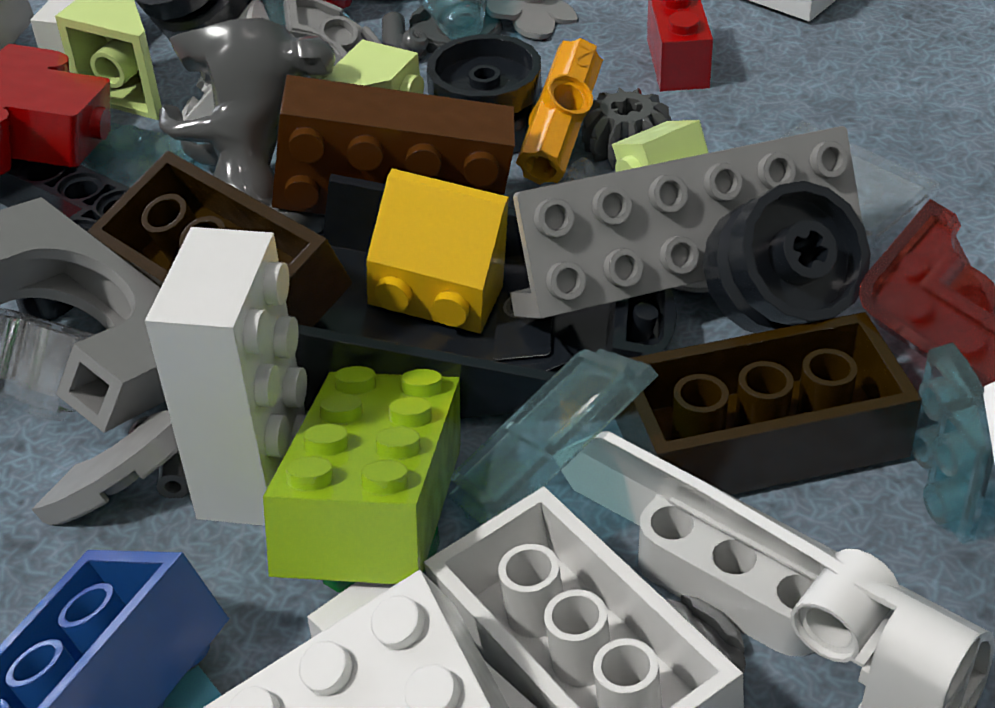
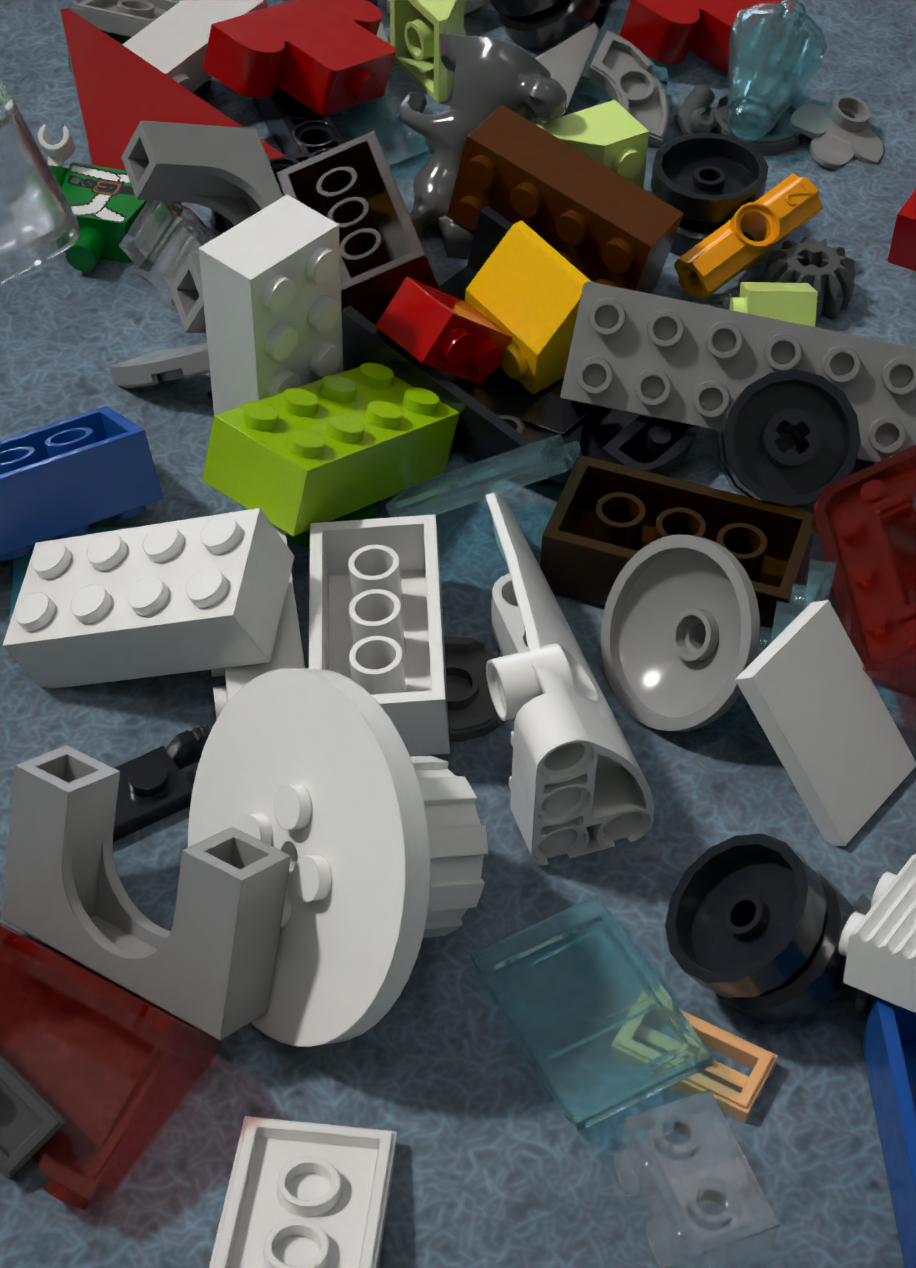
camera: 30 degrees right, 5 degrees up
(388, 306) = (444, 331): none -> red brick
(812, 482) = (679, 632): none -> light grey dish

